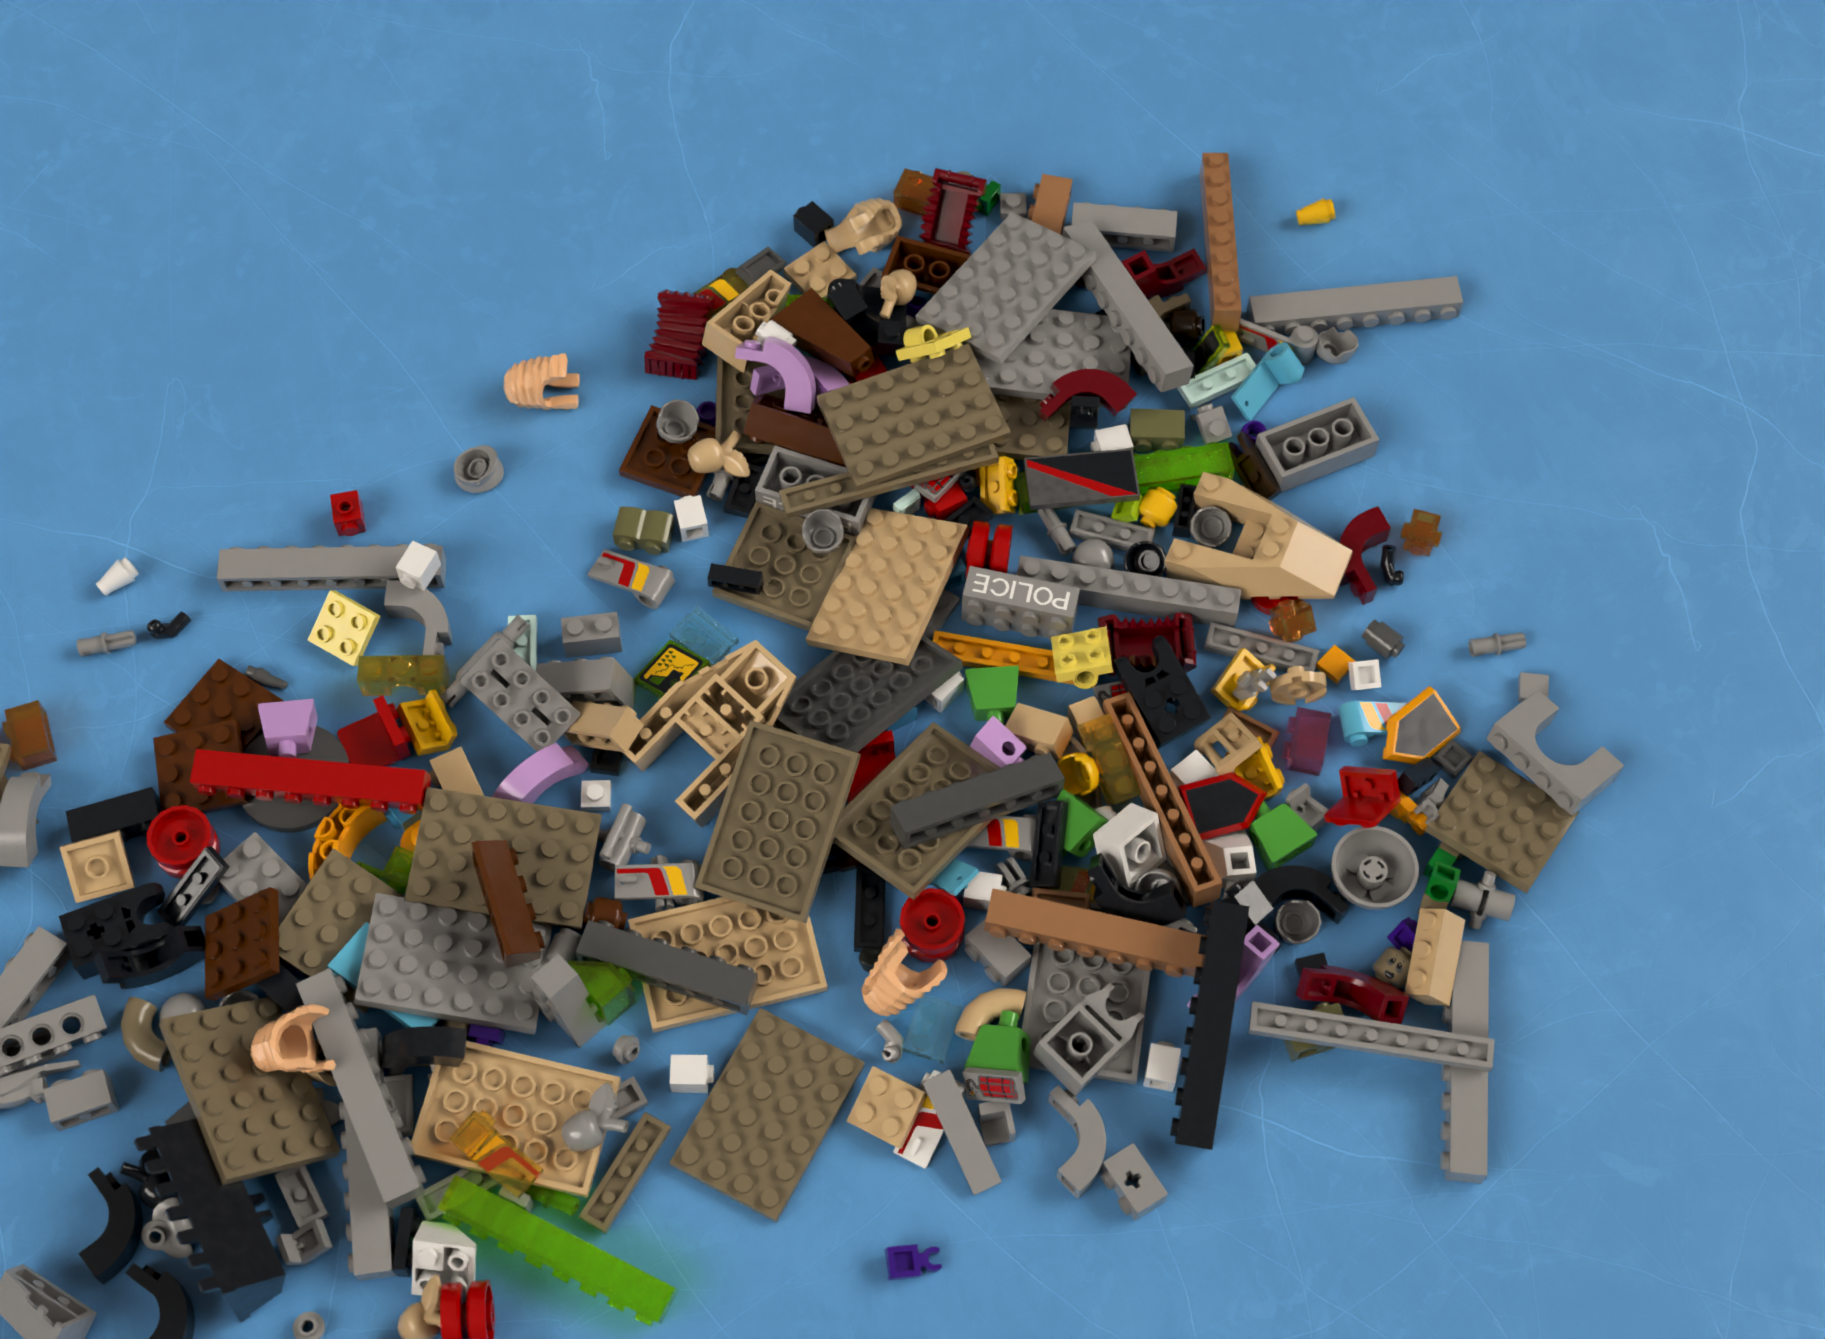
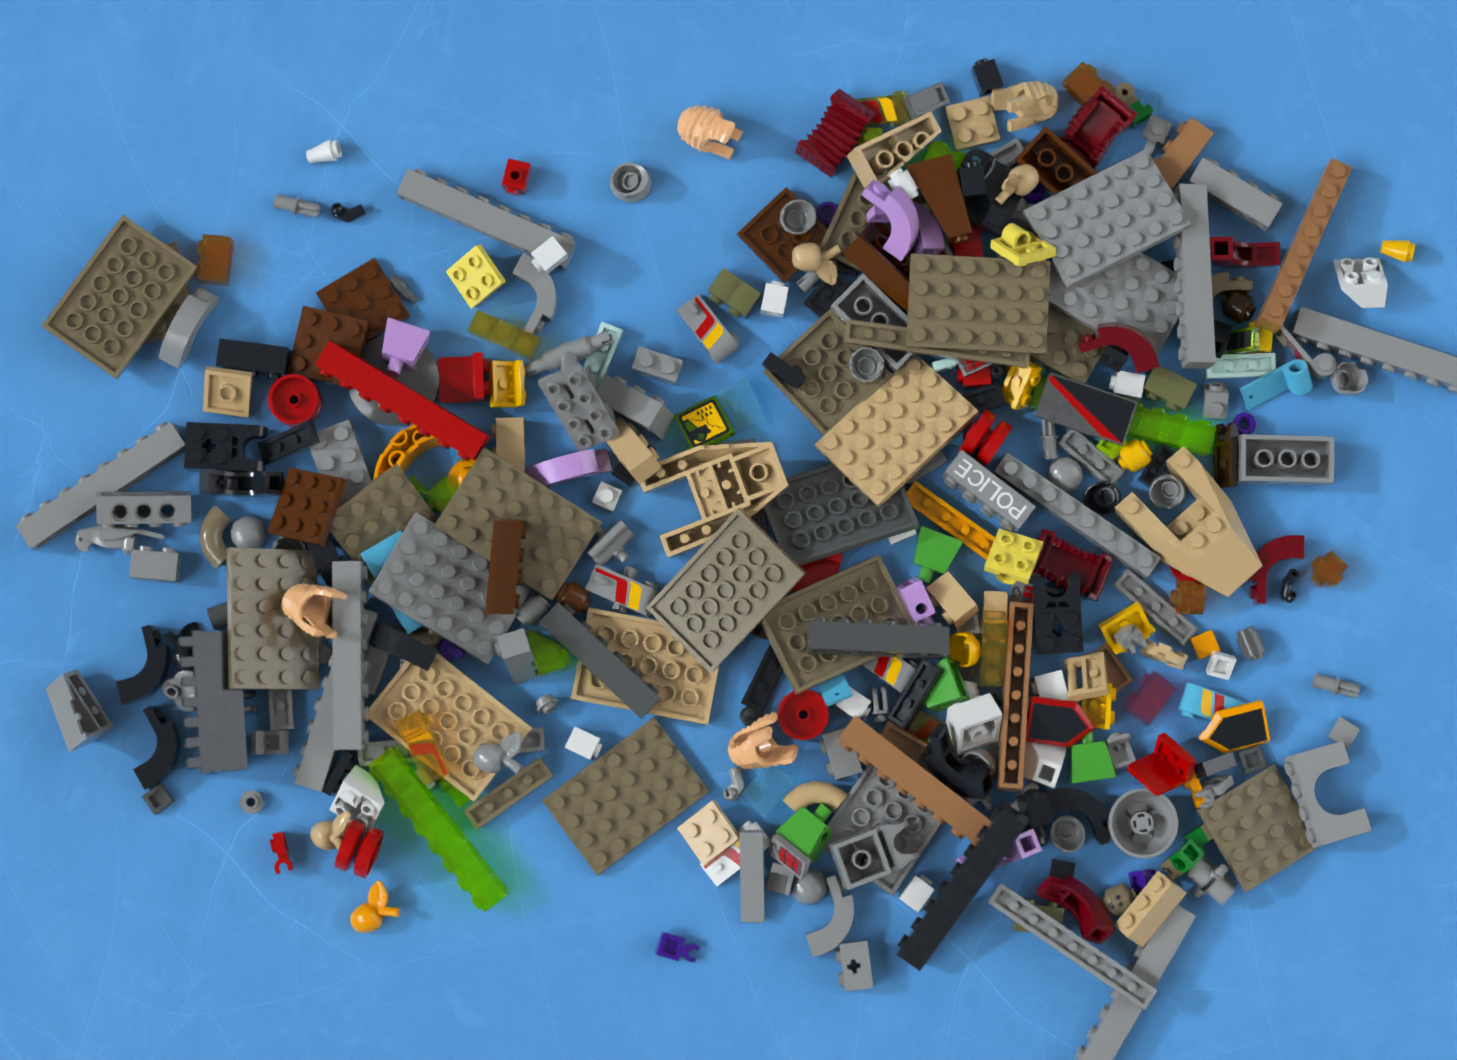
camera: 25 degrees right, 20 degrees up
(1034, 1119) = (811, 888): none -> light grey hair
(1299, 251) = (1362, 281): none -> white slope

